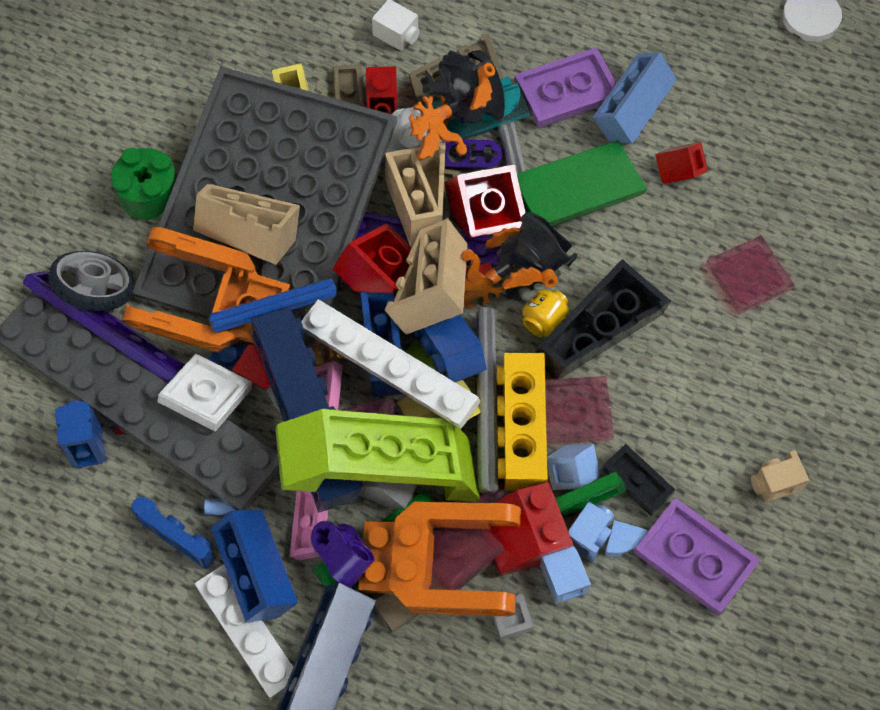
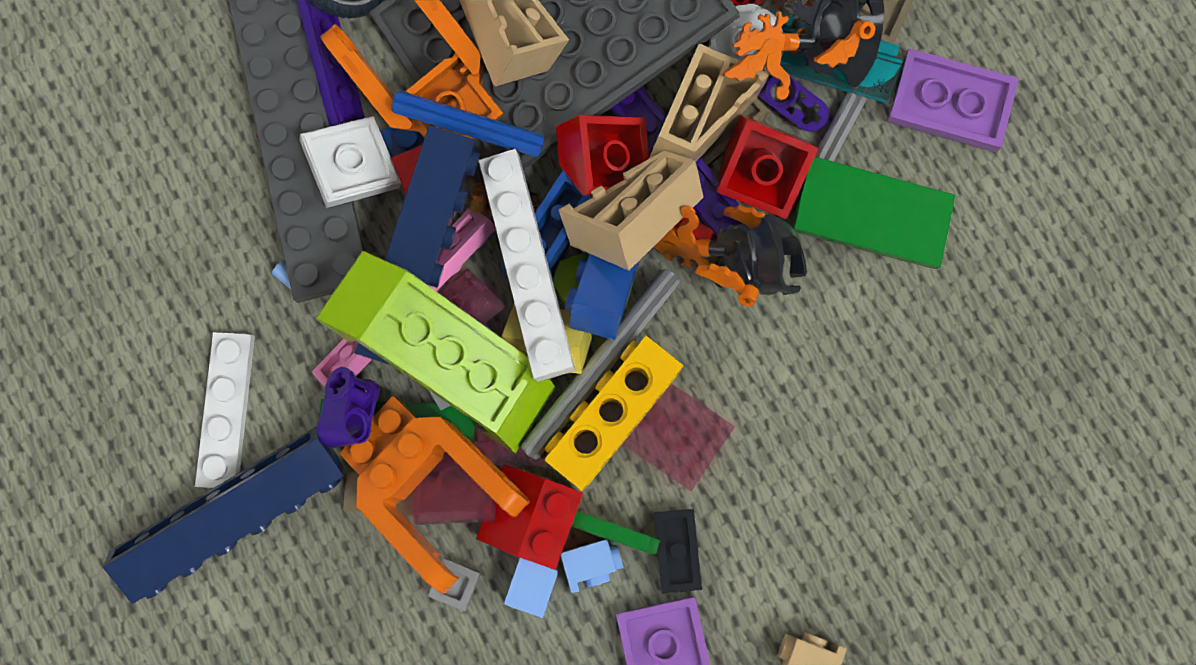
camera: 45 degrees right, 15 degrees up
(80, 434) = (214, 117): blue brick -> none
(173, 532) = (228, 271): blue hinge -> none
(254, 565) = (269, 358): blue brick -> none
(545, 312) = (728, 321): yellow head -> none
(572, 467) = (627, 490): light blue panel -> none
(602, 319) = (782, 369): black wedge -> none
(623, 538) = (618, 594): light blue tile -> none
(635, 98) = (1010, 163): medium blue brick -> none
(681, 162) = (999, 266): red panel -> none
(750, 274) = (967, 433): clear pink tile -> none

